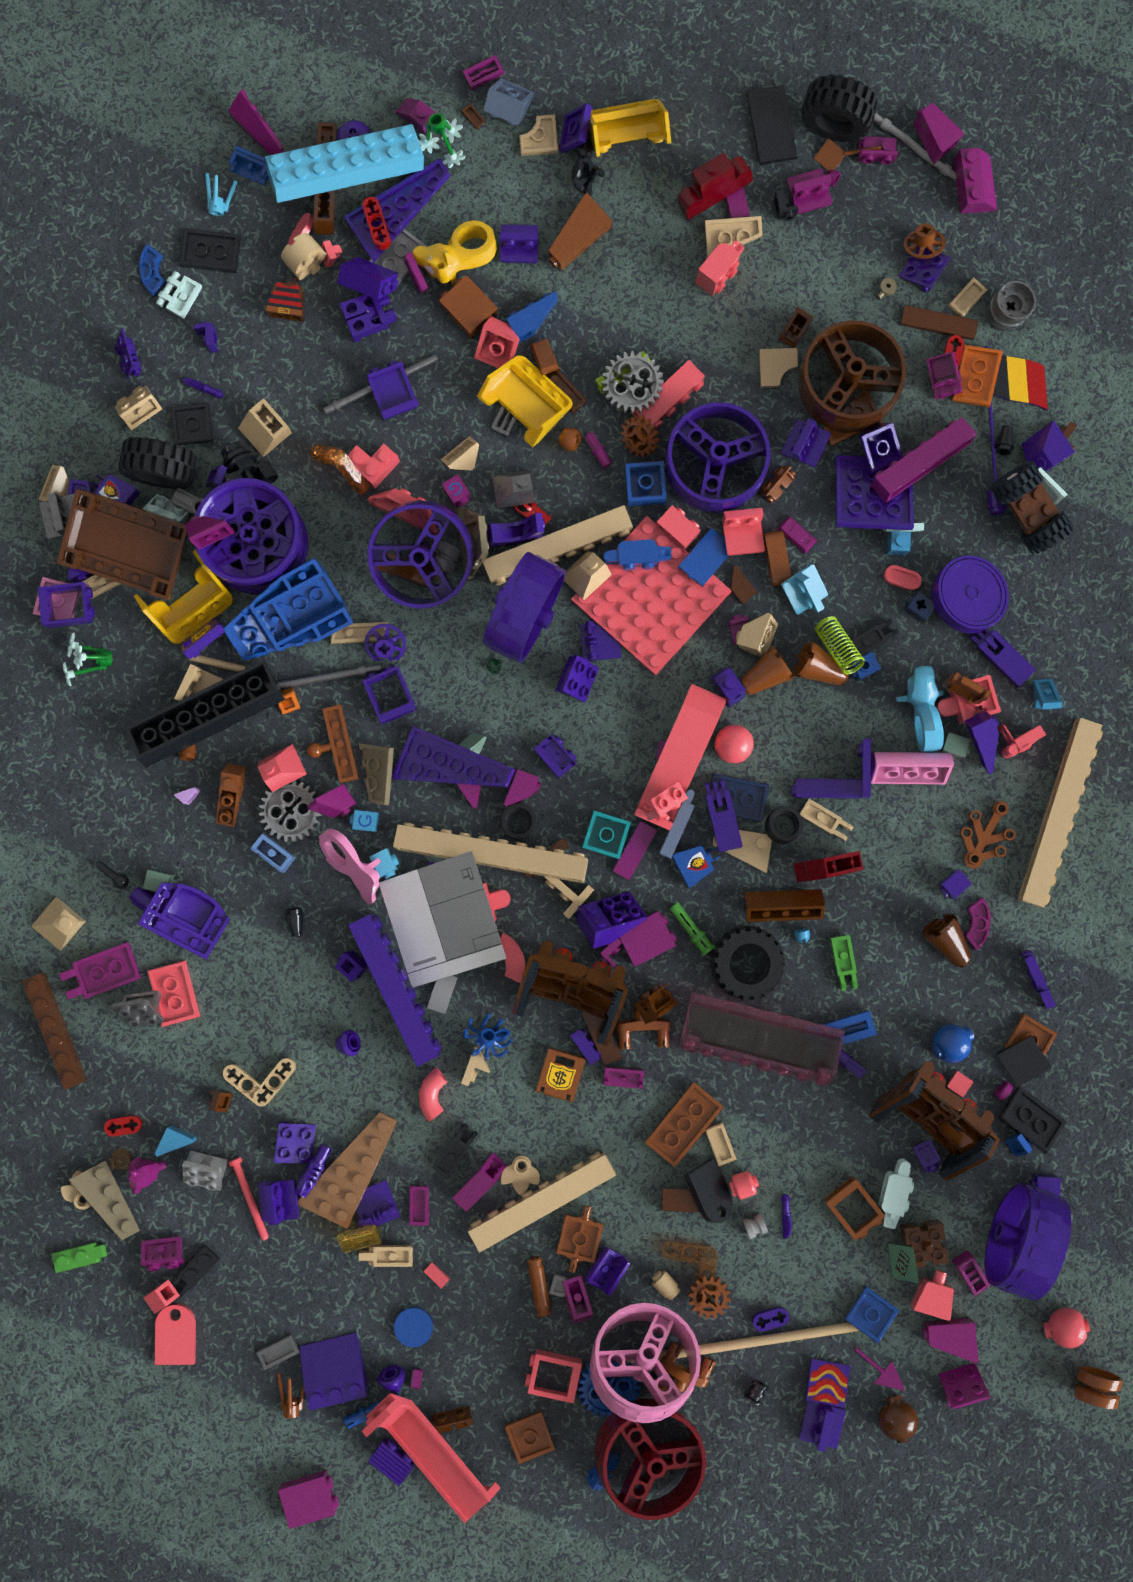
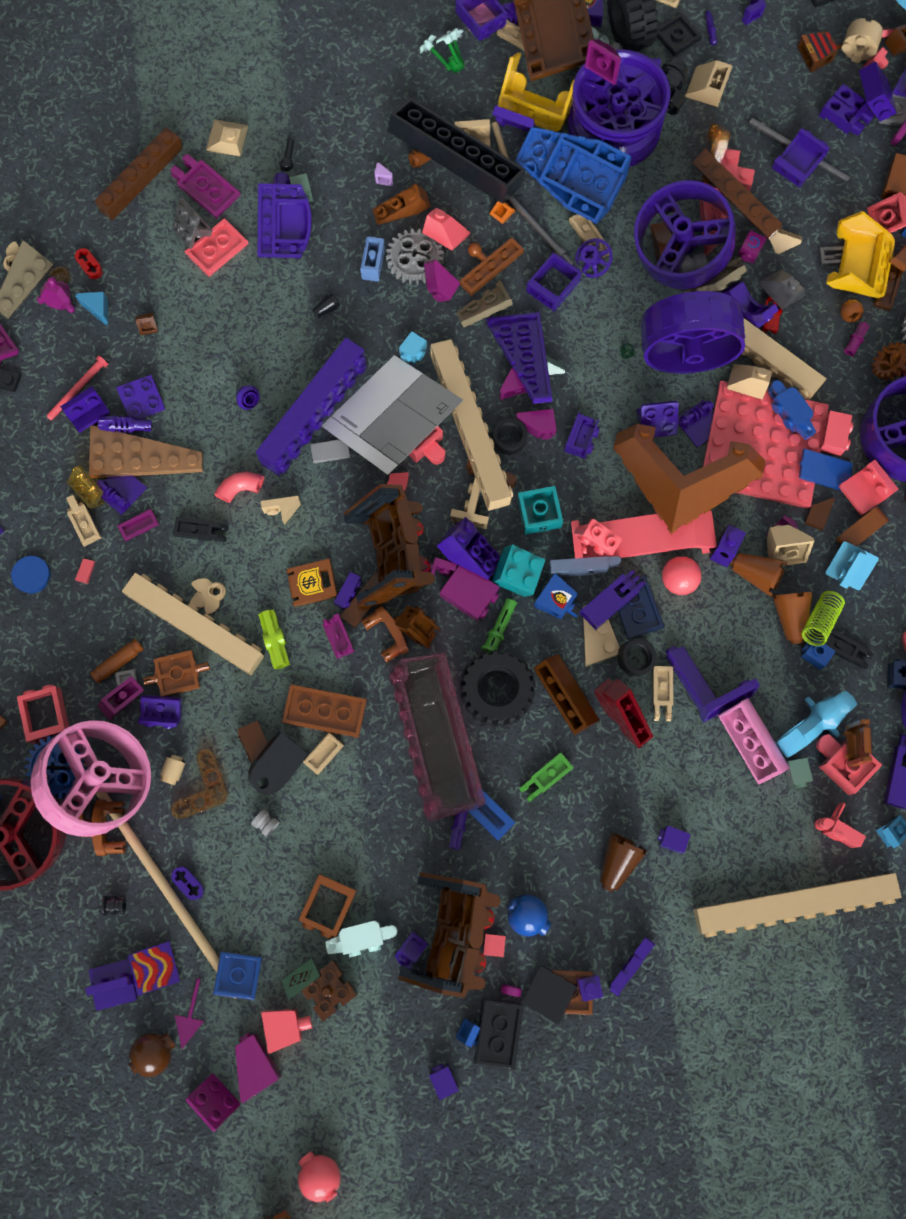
camera: 65 degrees right, 10 degrees down
(204, 1171) = (81, 340): light grey bracket -> none
(257, 1086) = (177, 352): tan beam -> none
(345, 965) = (311, 365): dark purple brick -> none
(362, 874) = (395, 319): bright pink animal -> none
(364, 820) = (439, 316): dark azure brick -> none
(403, 477) = (737, 194): none -> reddish brown brick
(479, 1182) = (183, 561): magenta slope -> none
(488, 1037) = (312, 503): blue animal -> none
(595, 1136) = (274, 639): none -> lime piece
(634, 850) = (542, 543): magenta tile -> none
(645, 483) = (854, 387): blue brick -> none
(652, 886) = (518, 570): none -> teal brick
(668, 712) = (679, 497): none -> dark orange wedge
(704, 1302) = (177, 819): dark orange gear -> none
(743, 1185) = (297, 792): coral head -> none
(786, 1218) = (291, 846): dark purple piece -> none
(797, 534) = (893, 538): magenta tile -> none
(801, 934) = (549, 725): dark azure hinge -> none
(964, 1262) = (332, 1038): magenta slope -> none
(979, 923) = (650, 885): magenta tile -> none
(984, 737) = (823, 790): dark purple slope -> none
(984, 837) = (731, 846): dark orange plant -> none
(1027, 1241) = (381, 1082): dark purple wheel -> none
(1037, 1025) = (589, 987): none -> dark purple brick

